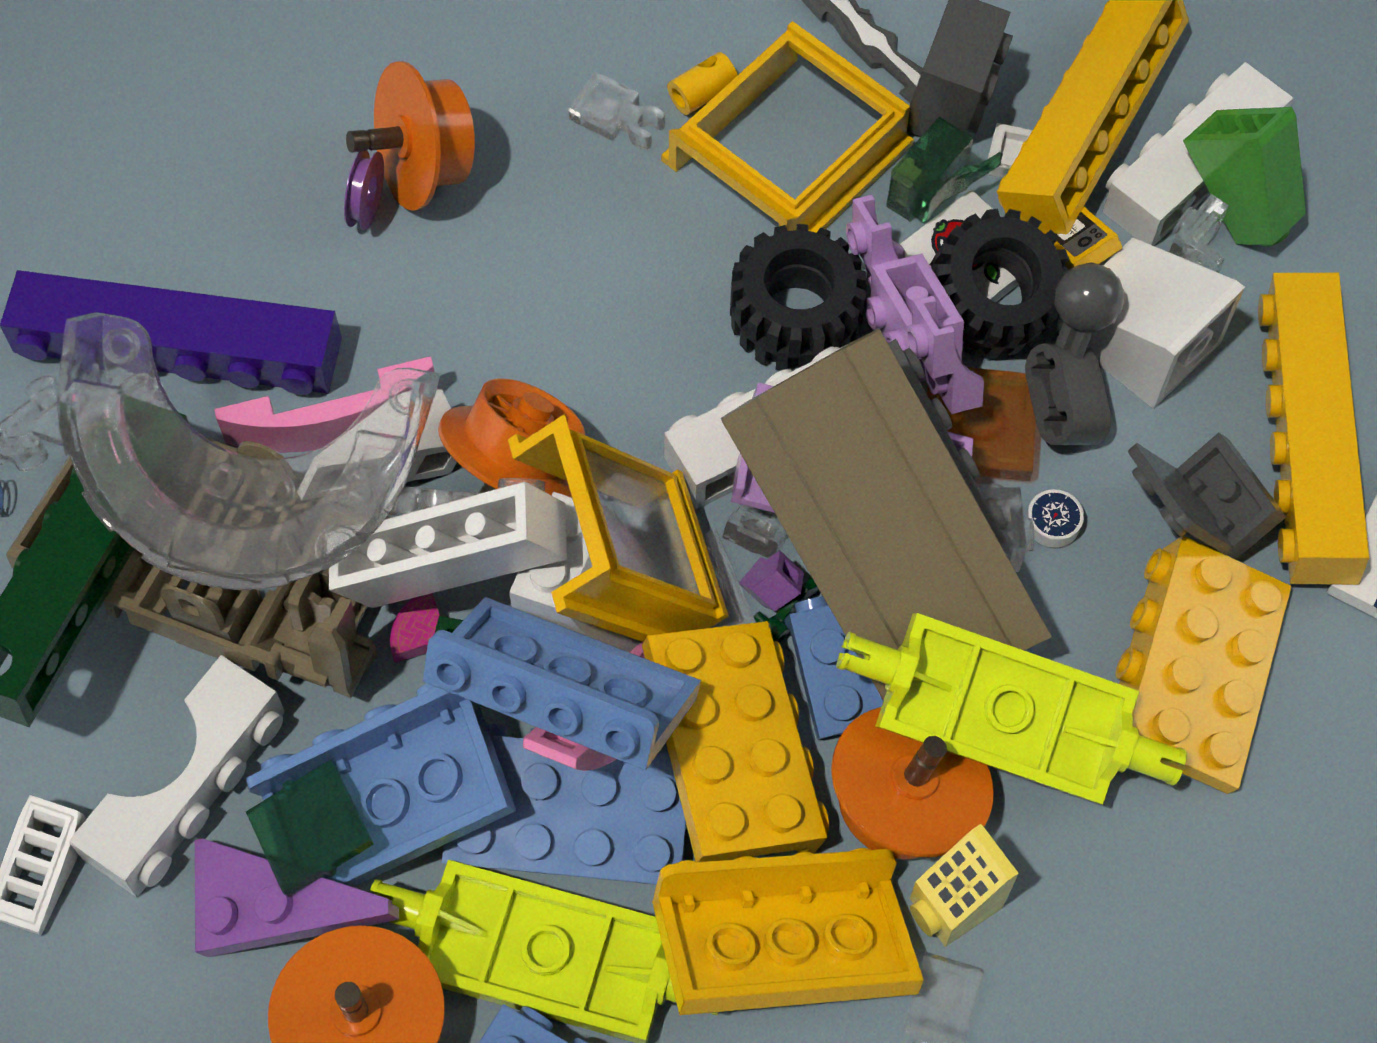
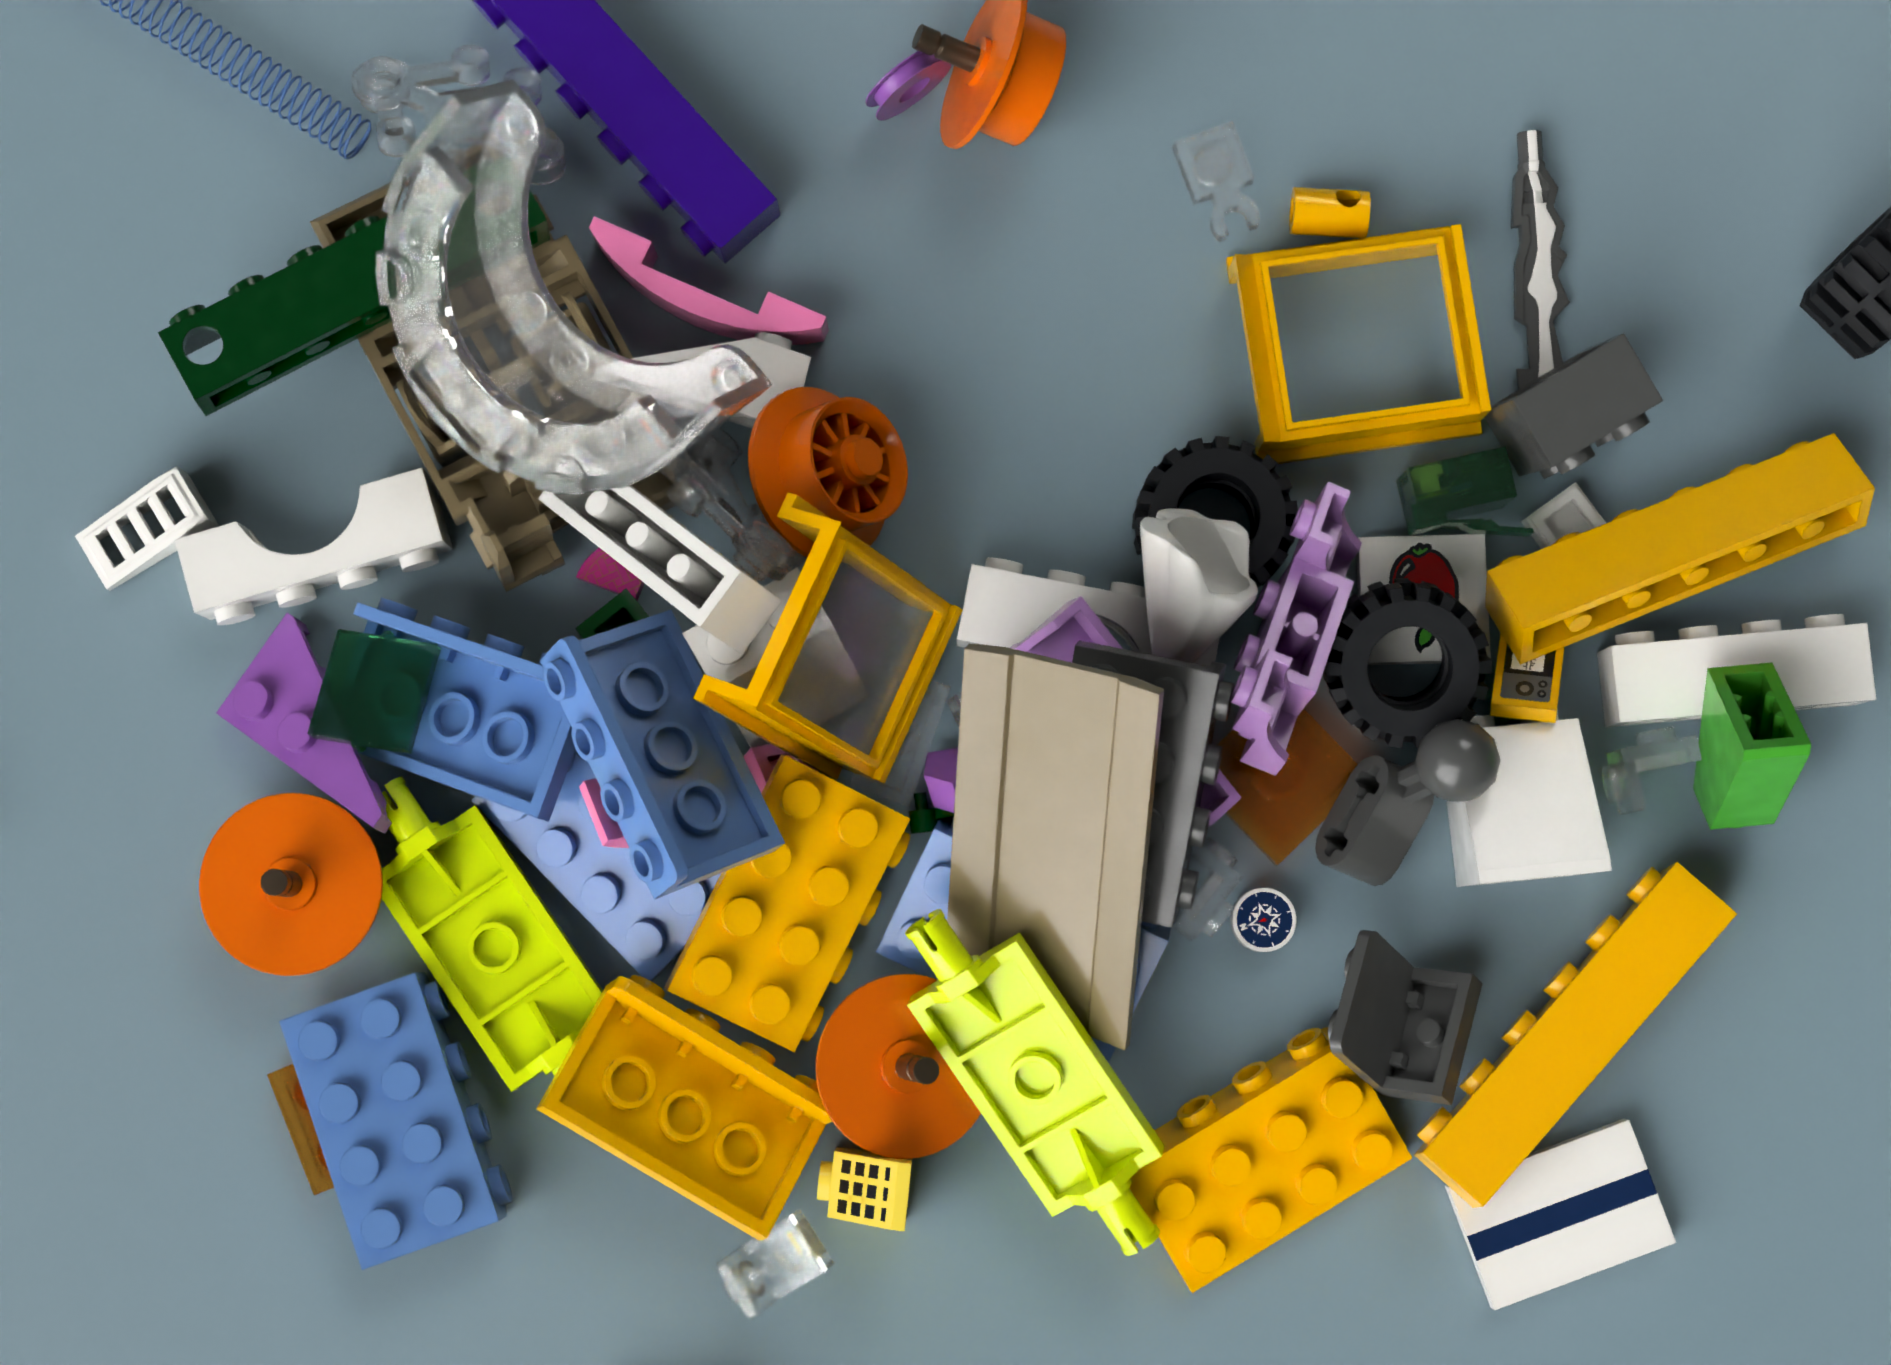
camera: 40 degrees right, 20 degrees up
(819, 312) = (1193, 580): none -> white hat

